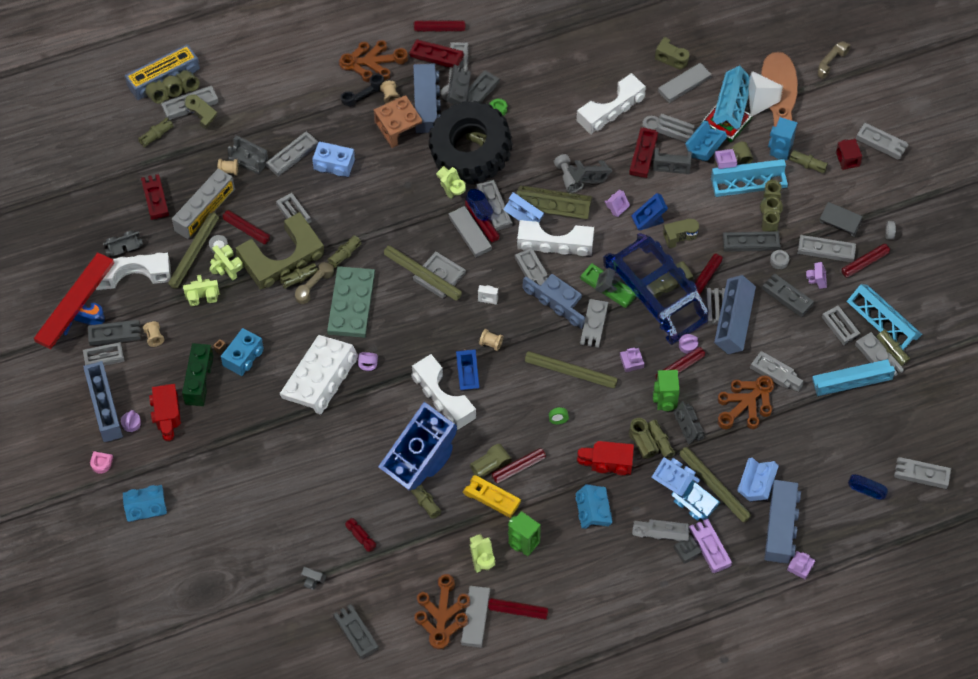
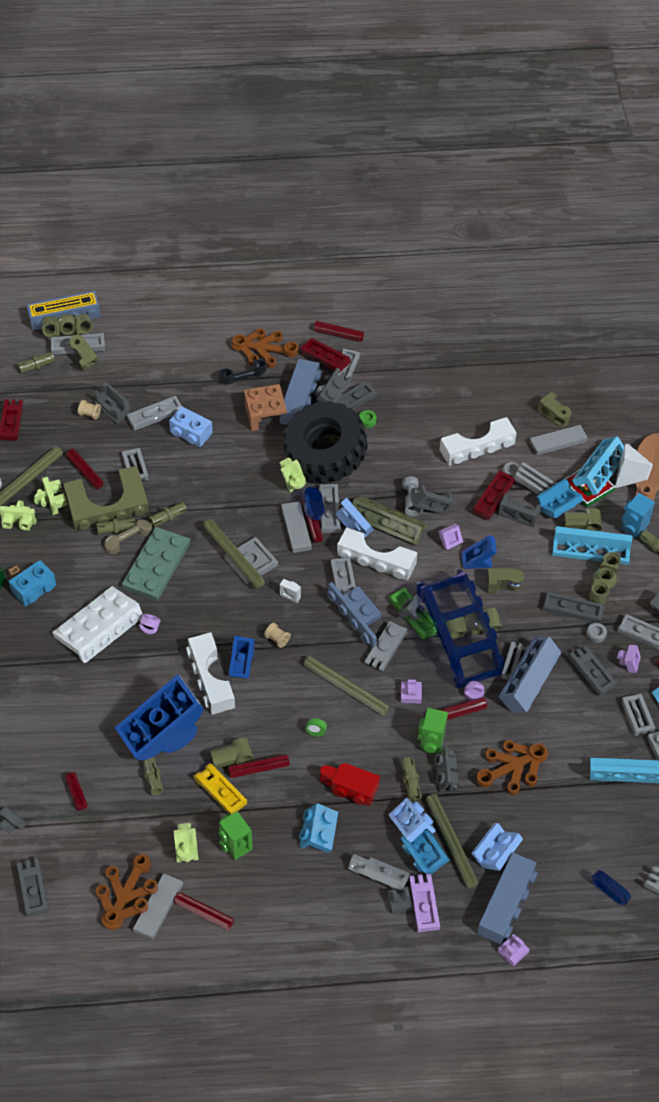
camera: 15 degrees right, 5 degrees down
(203, 202) = (54, 434): light grey brick -> none
(218, 240) = (53, 474): light grey tile -> none
(389, 91) = (268, 377): tan bush -> none
(643, 439) = (393, 773): olive piece -> none
(708, 272) = (517, 627): dark red axle -> none
(725, 159) = (572, 520): lavender tile -> none
(776, 371) = (555, 743): light grey hinge -> none

